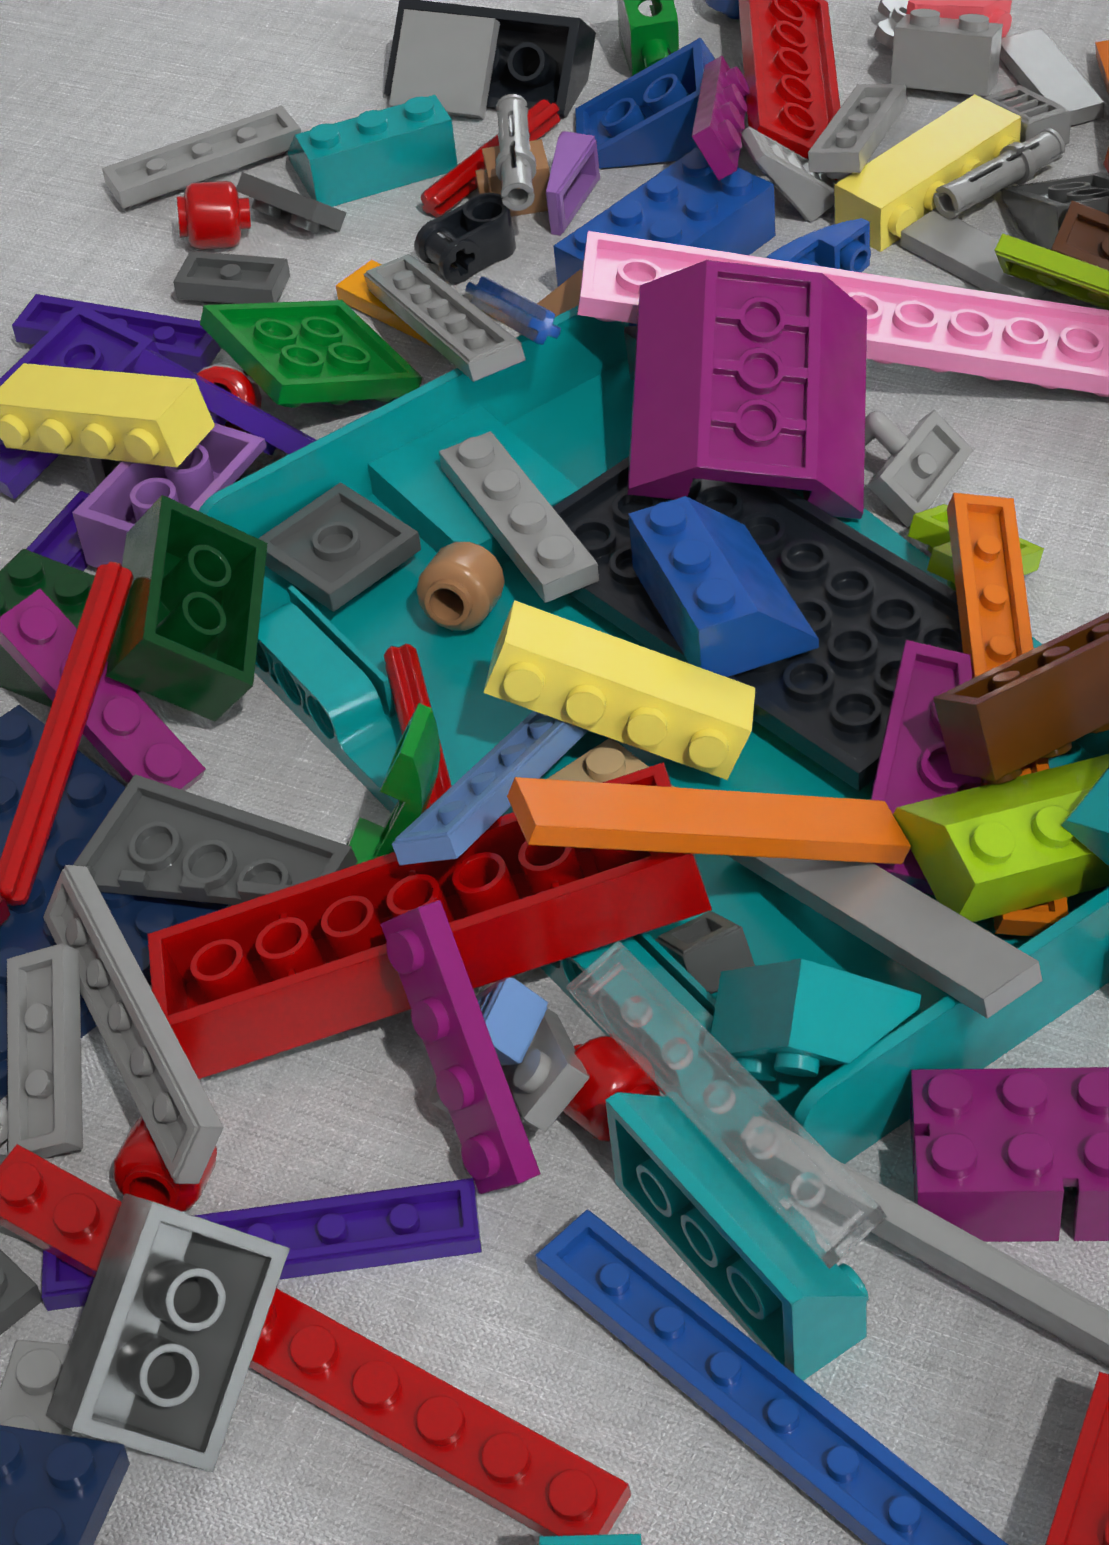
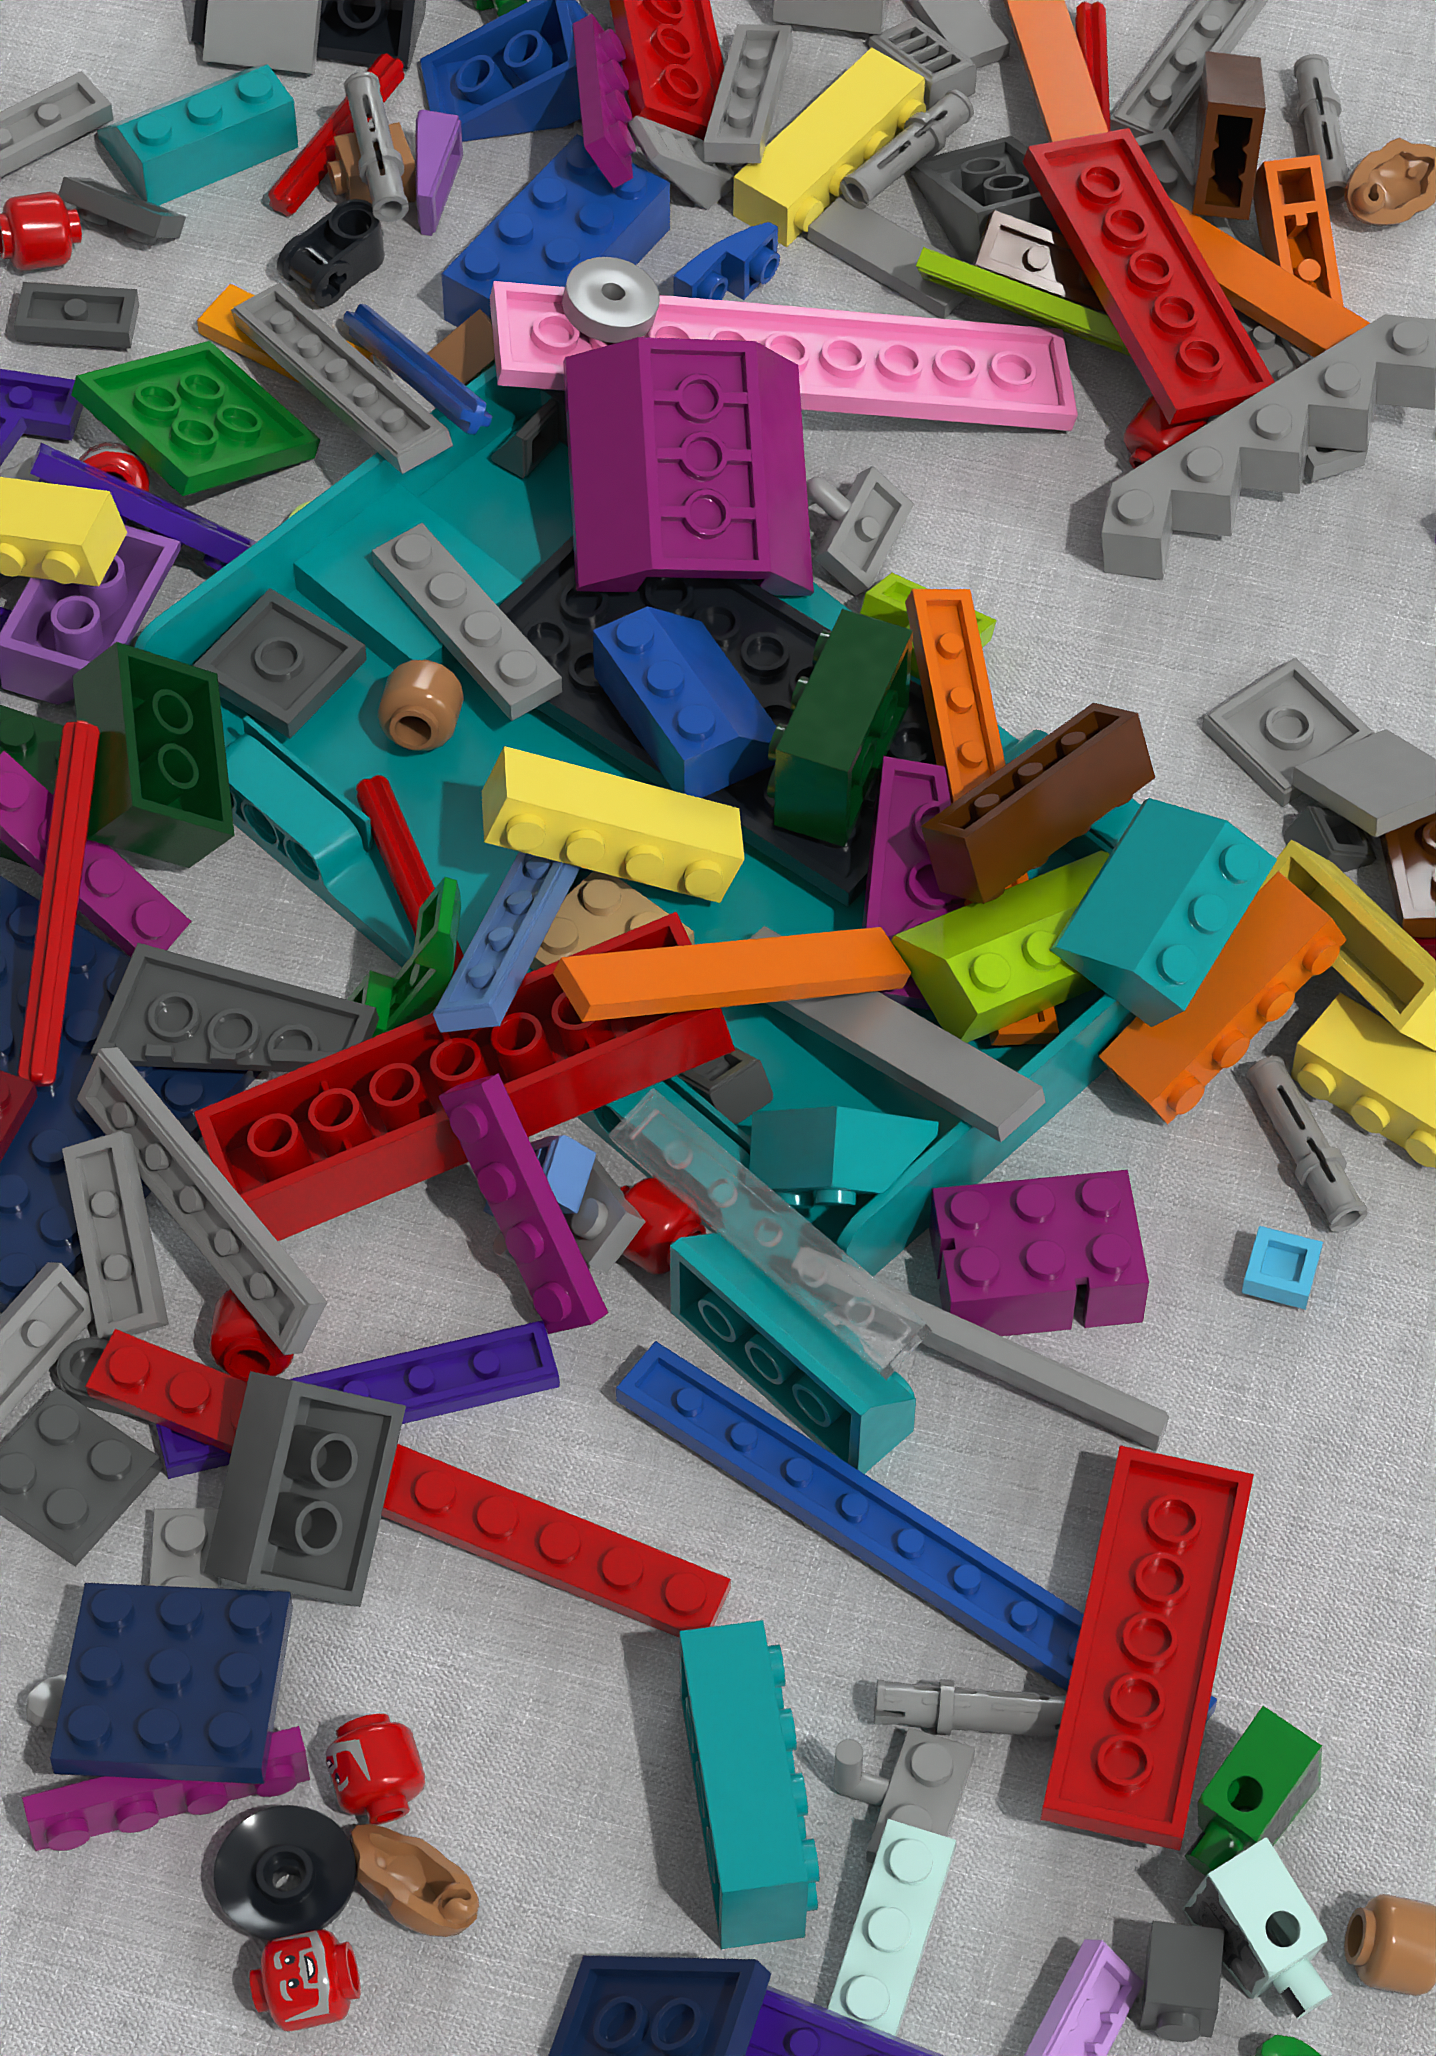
camera: 15 degrees left, 10 degrees up
(609, 379) = (530, 441): none -> dark grey slope
(690, 240) = (610, 299): none -> light grey piece
(862, 608) = (840, 726): none -> dark green brick

